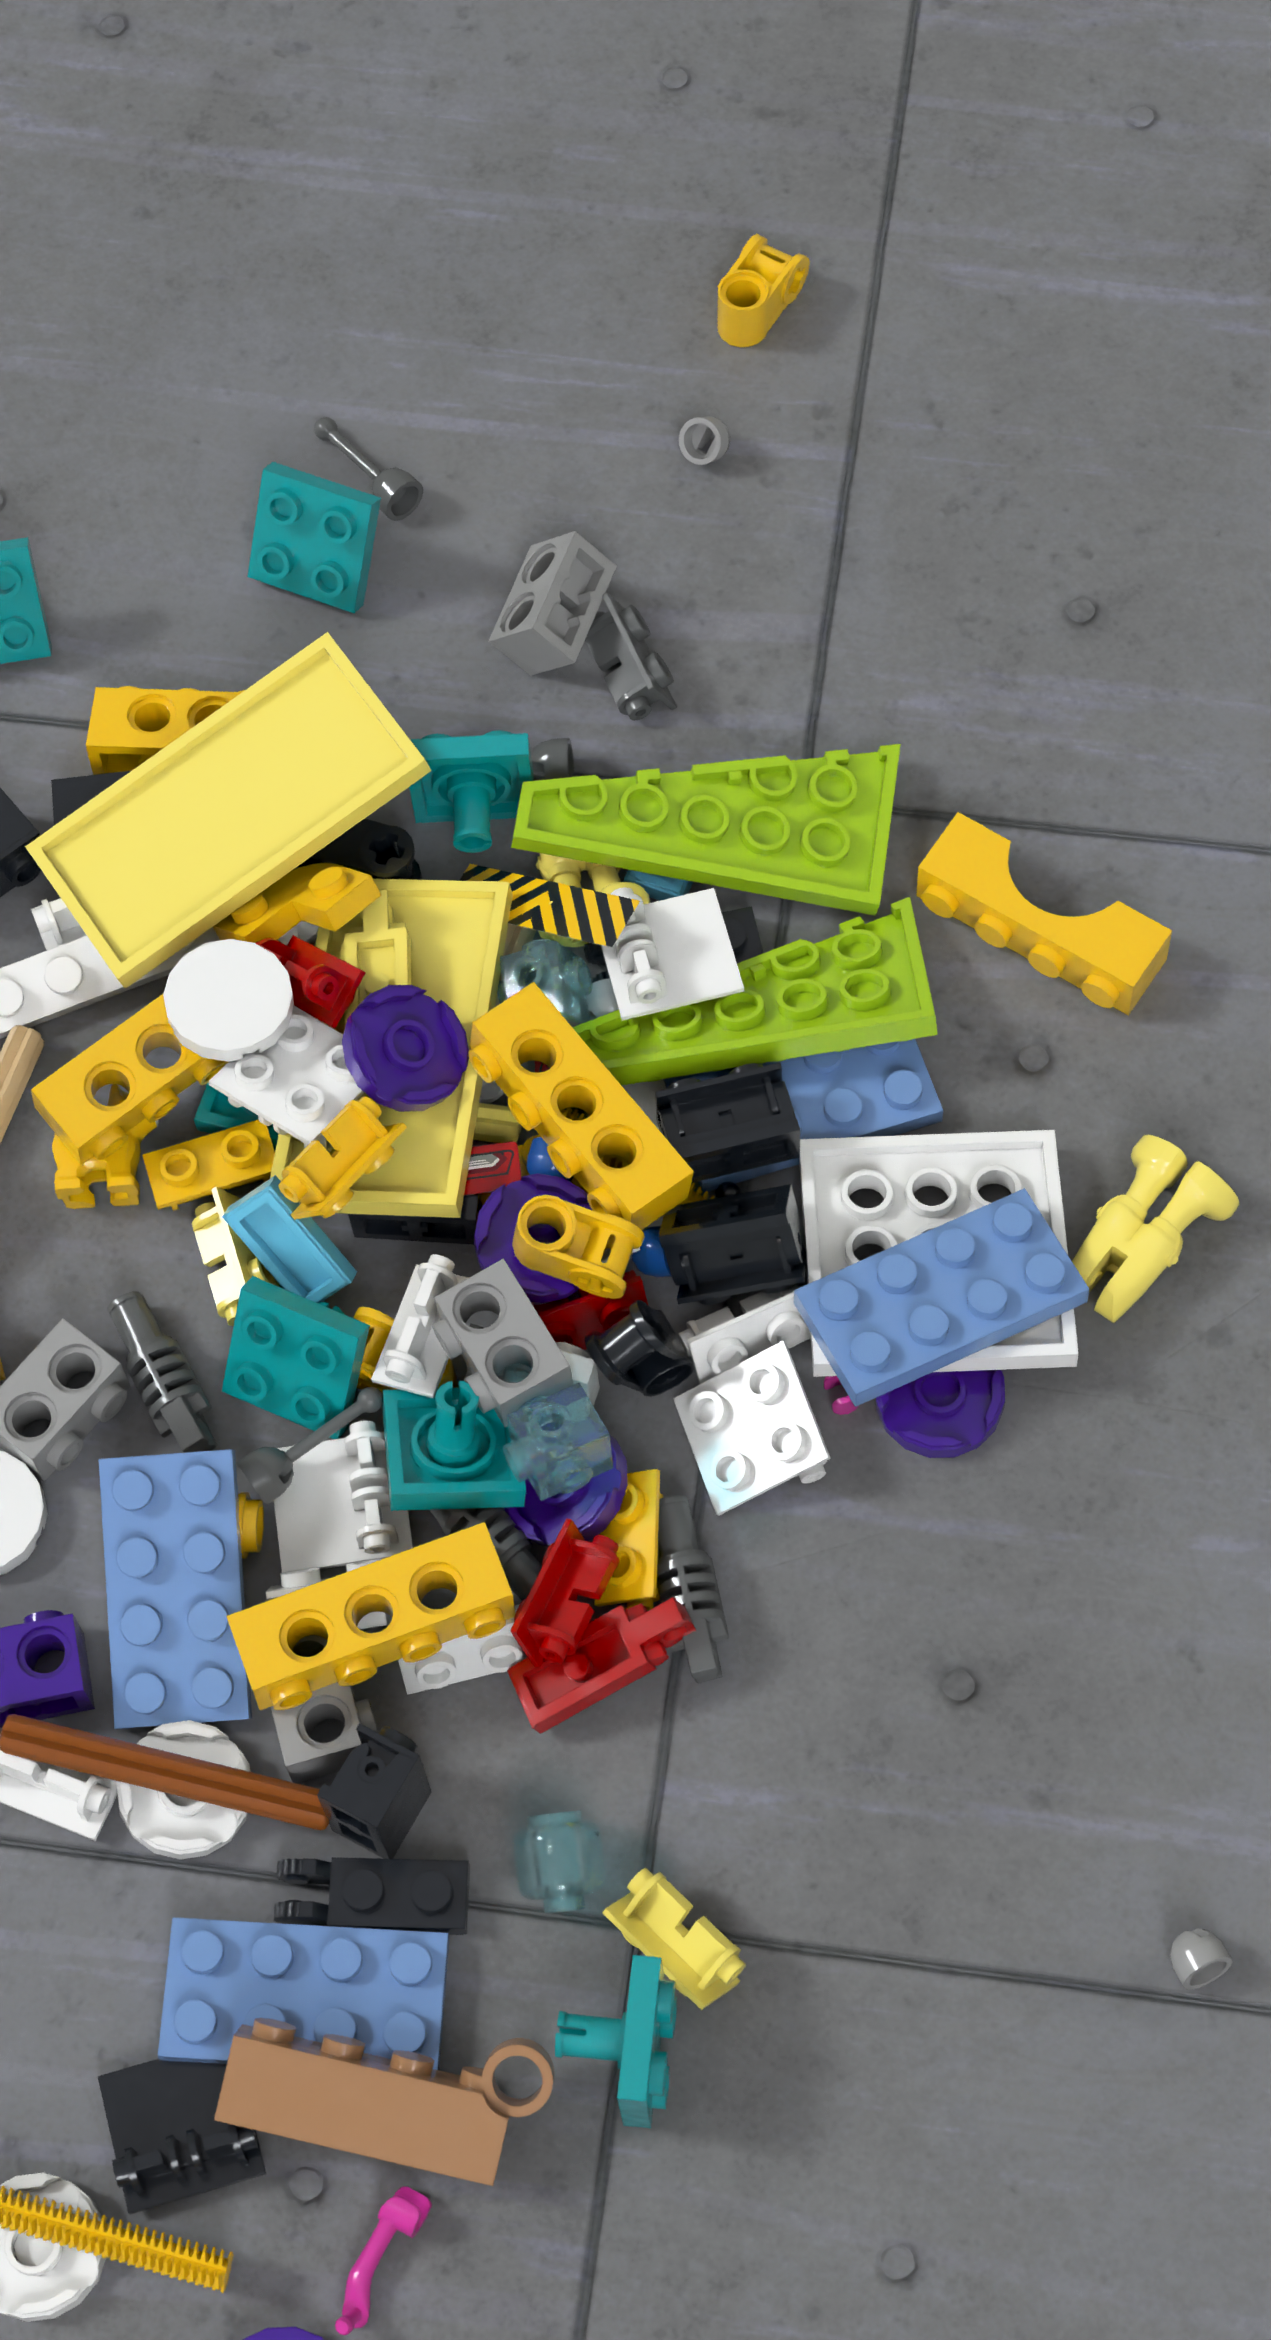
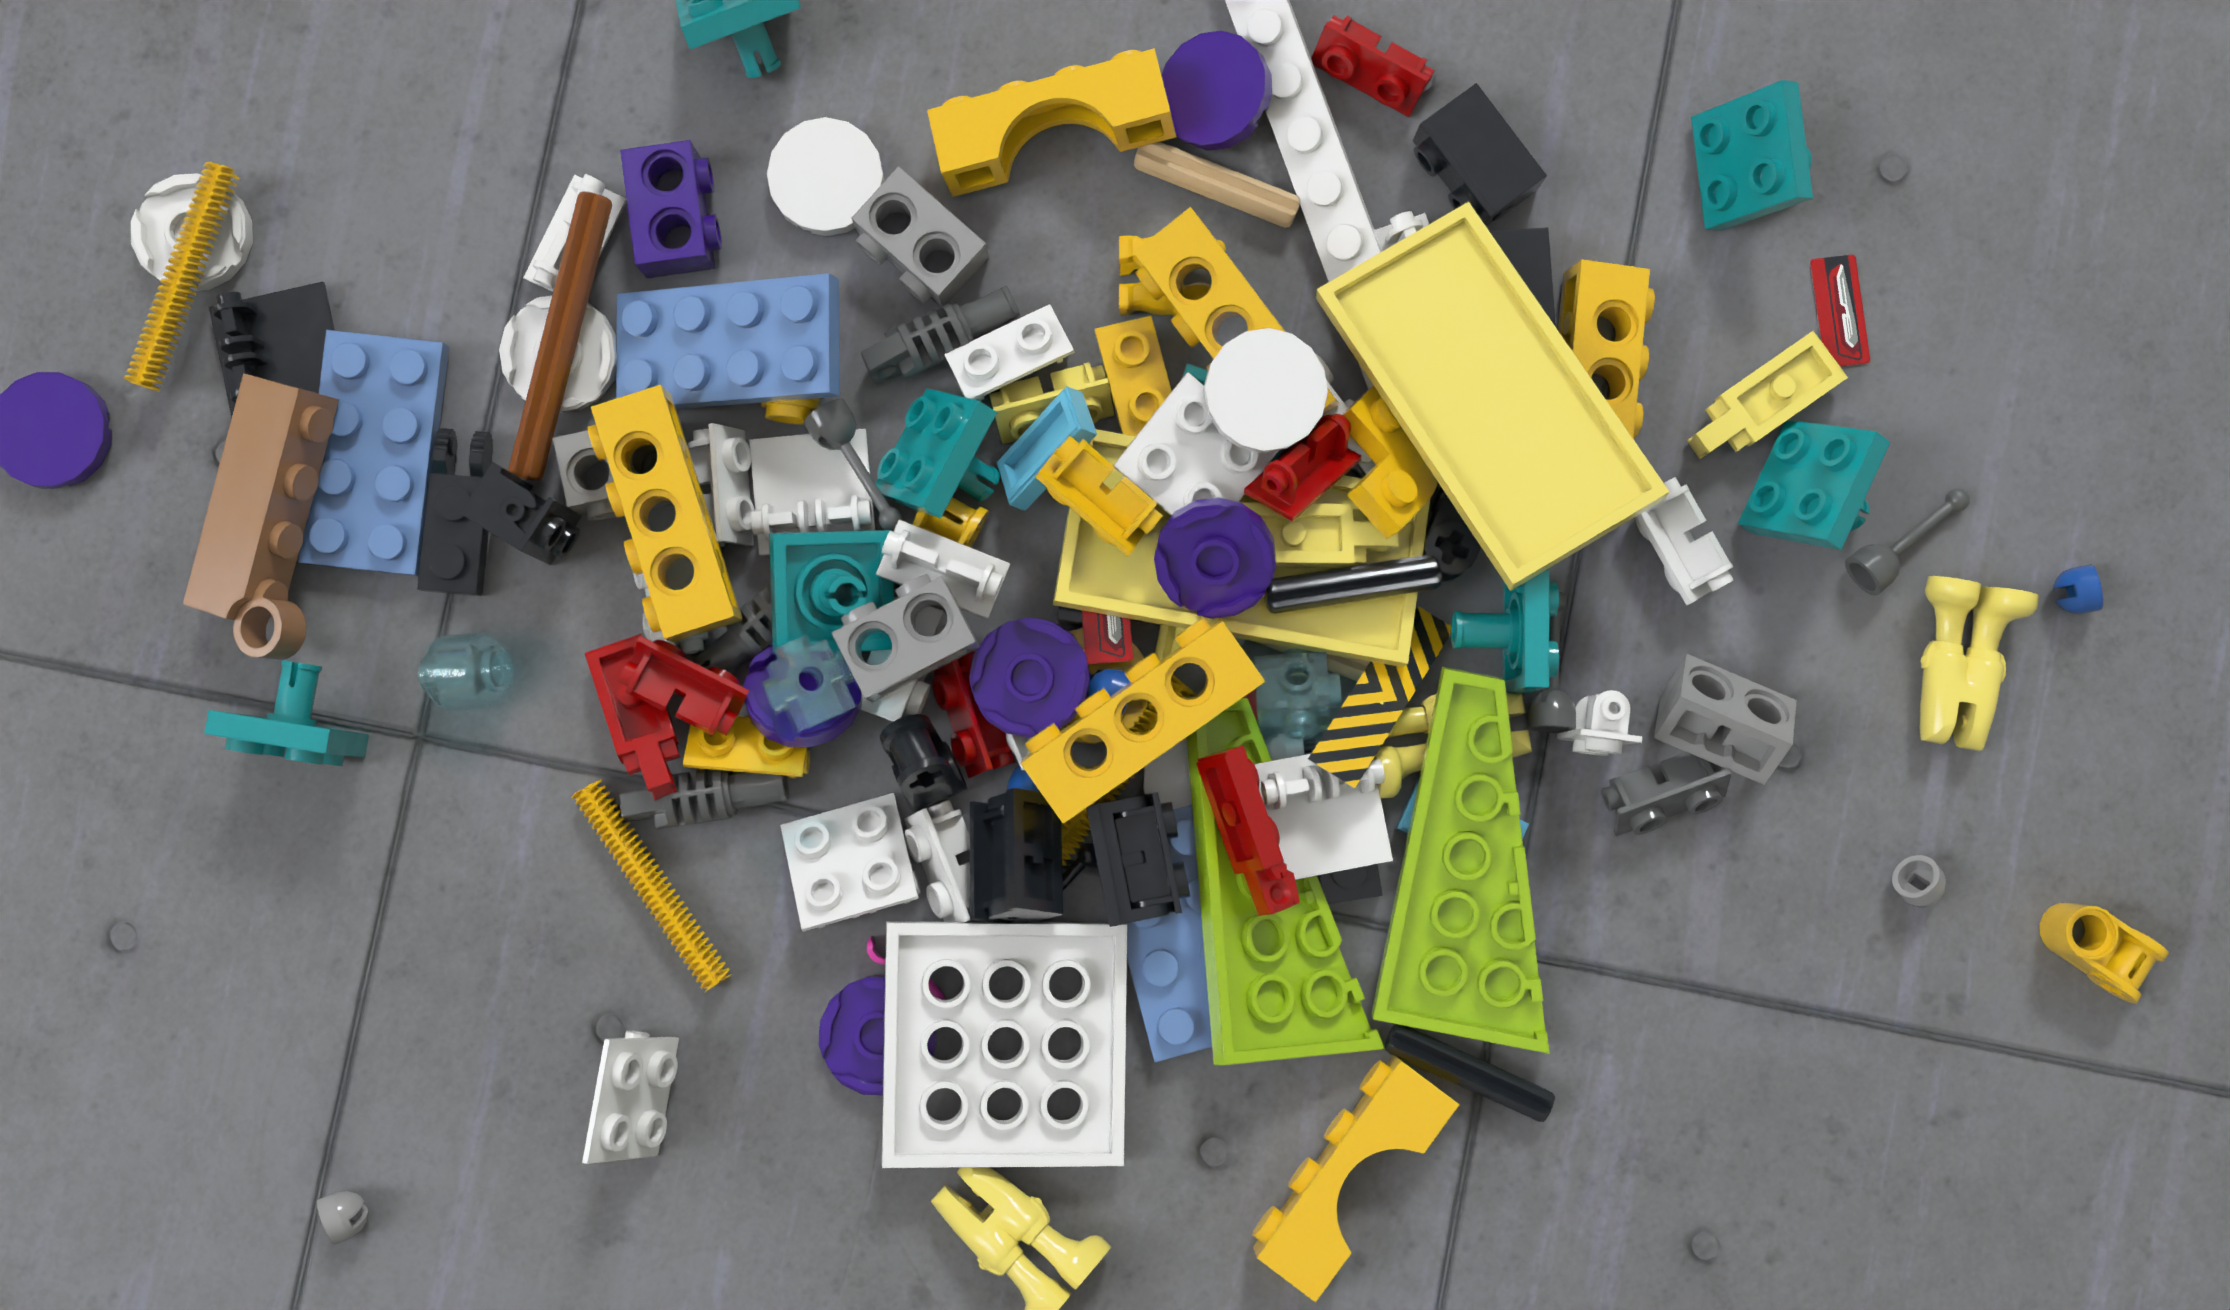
camera: 85 degrees right, 20 degrees up
(135, 538) = (1840, 309): none -> sticker
(185, 1296) = (1009, 353): none -> white hinge
(225, 589) = (1769, 396): none -> light yellow hinge
(394, 644) = (1689, 564): none -> white hinge
(402, 2212) = (187, 525): dark pink piece -> none
(411, 320) = (2082, 589): none -> blue hinge
(427, 927) = (1353, 583): none -> black axle
(502, 416) = (1959, 688): none -> light yellow piece
(563, 704) = (1601, 725): none -> white hinge
(580, 1247) = (1000, 714): yellow piece -> none
(685, 1009) = (1247, 829): none -> red hinge
(697, 1960) = (386, 766): light yellow hinge -> none
(791, 1641) = (651, 886): none -> yellow axle
(926, 818) = (1470, 1072): none -> black axle
(940, 1296) = (944, 1046): medium blue plate -> none
(1062, 1624) = (631, 1098): none -> white hinge

